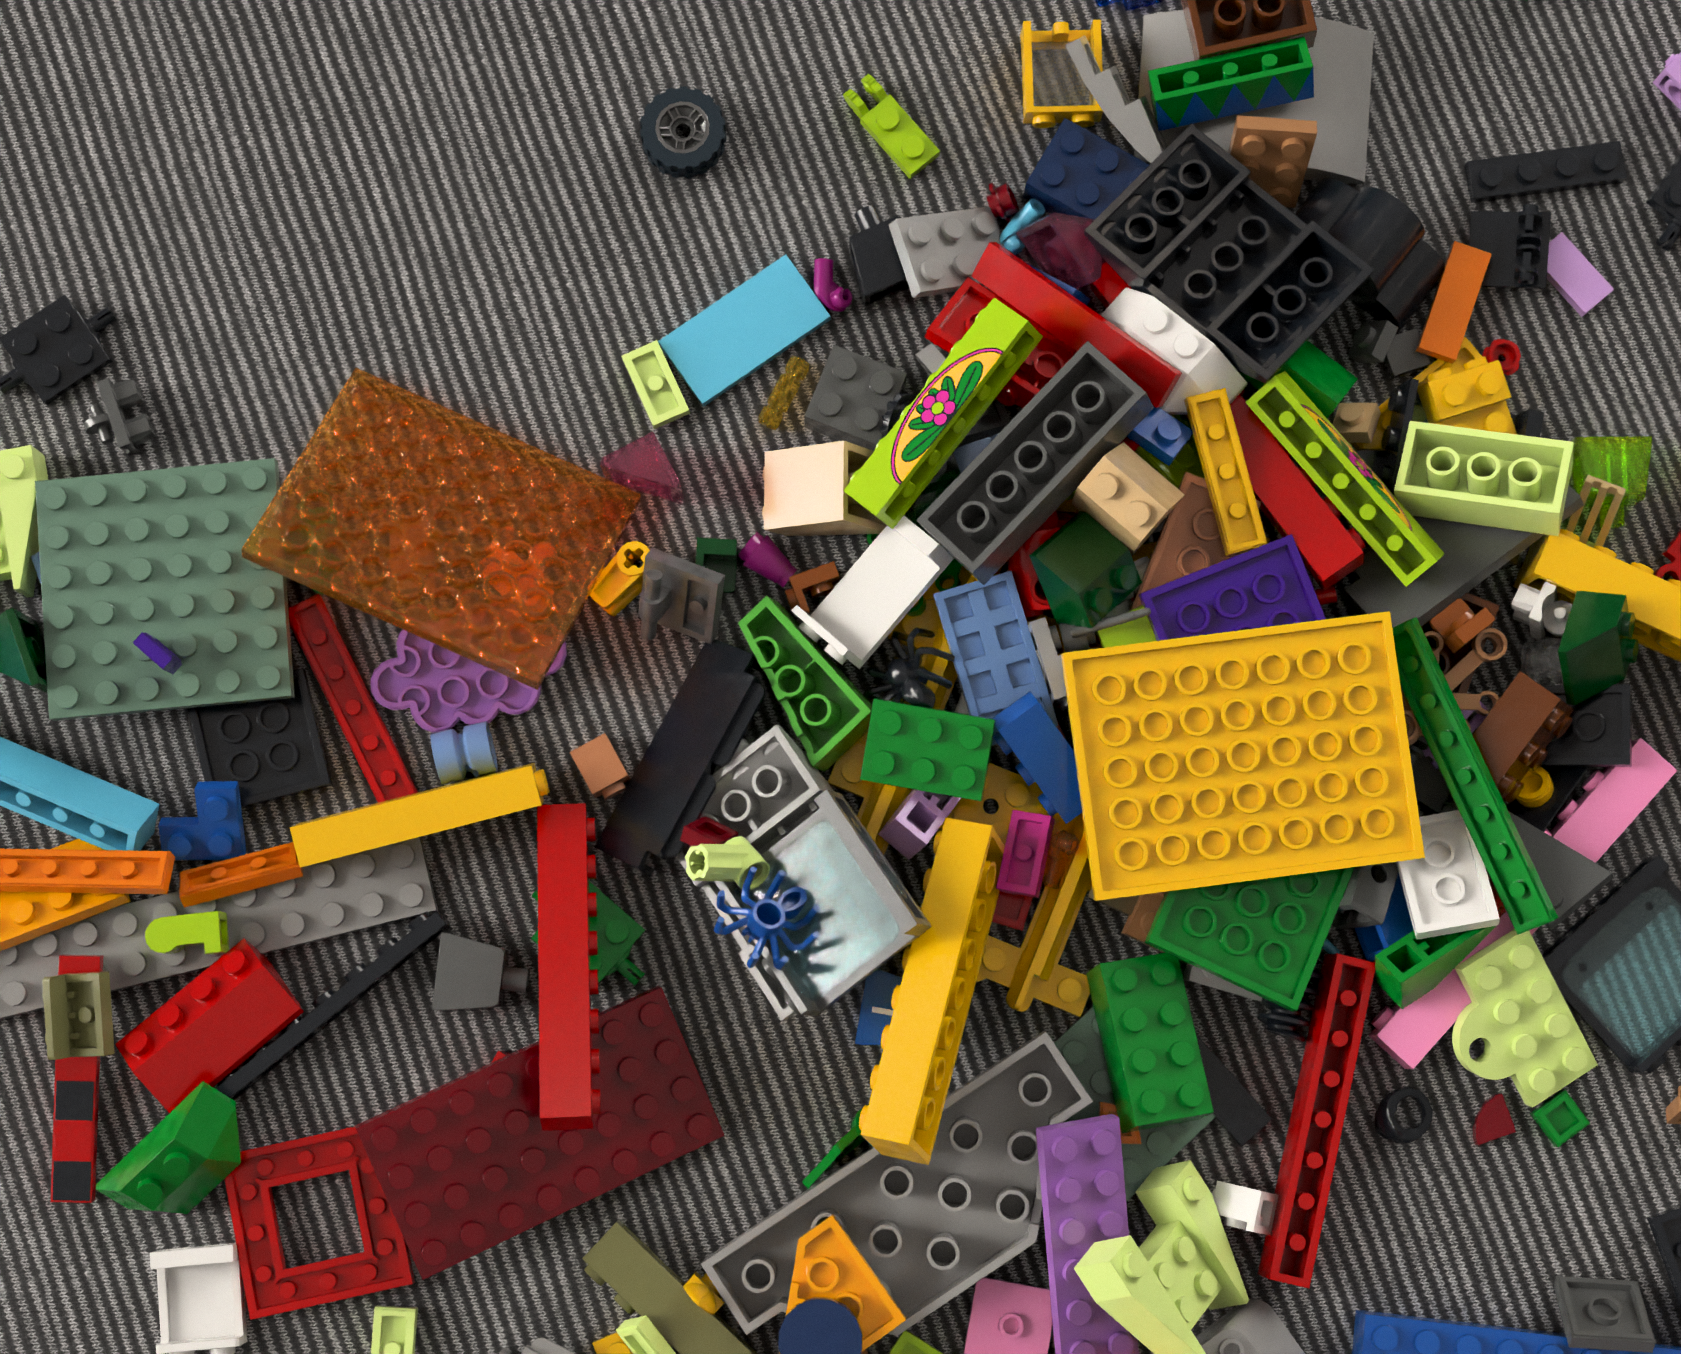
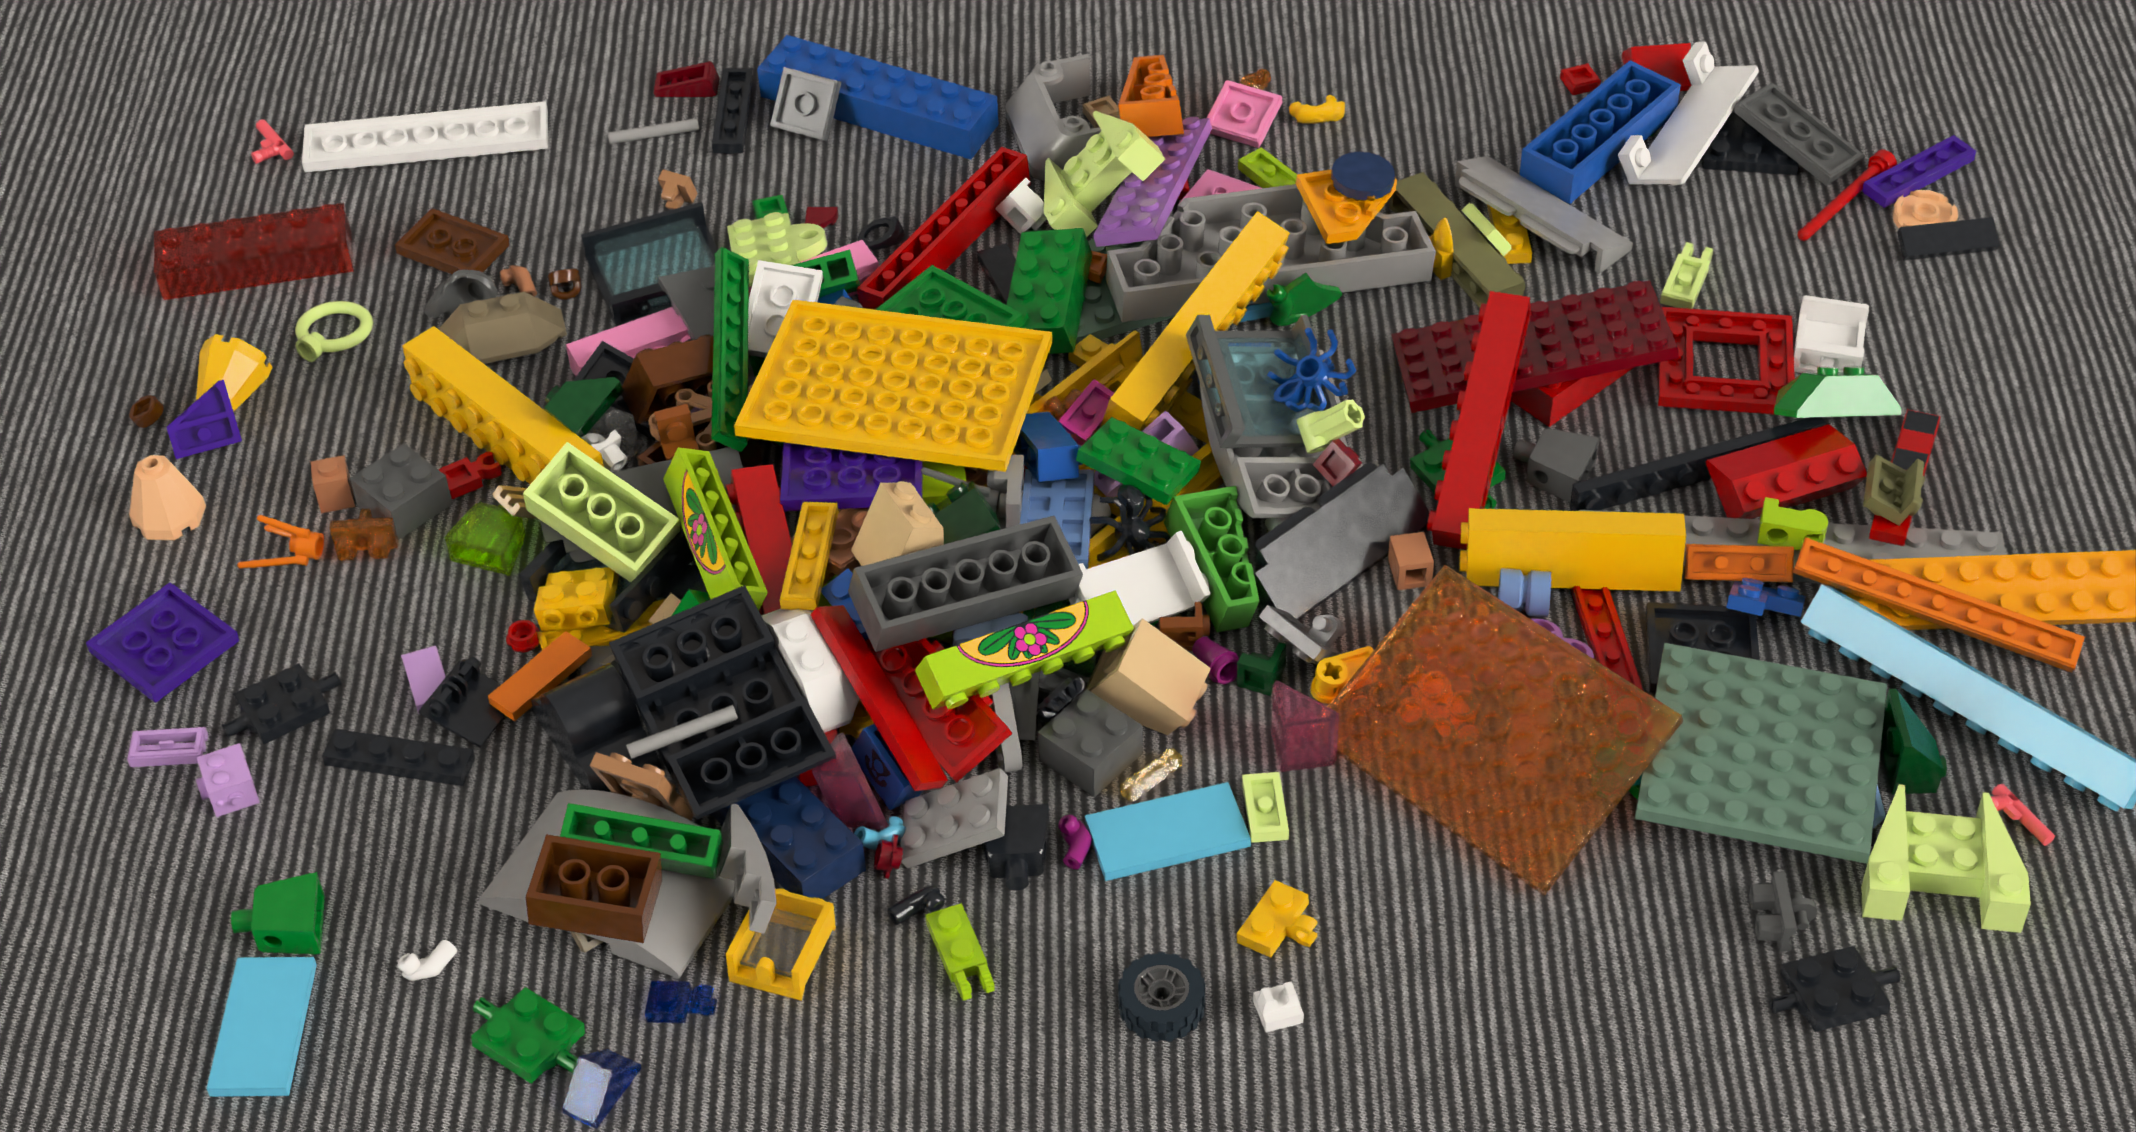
camera: 155 degrees left, 35 degrees down
(158, 652) = (1776, 680): dark purple tile -> none
(573, 163) = (1278, 1007): none -> white tile
(605, 259) = (1277, 917): none -> yellow plate
(953, 165) = (926, 897): none -> black arm
(1251, 209) = (681, 731): none -> light grey bar

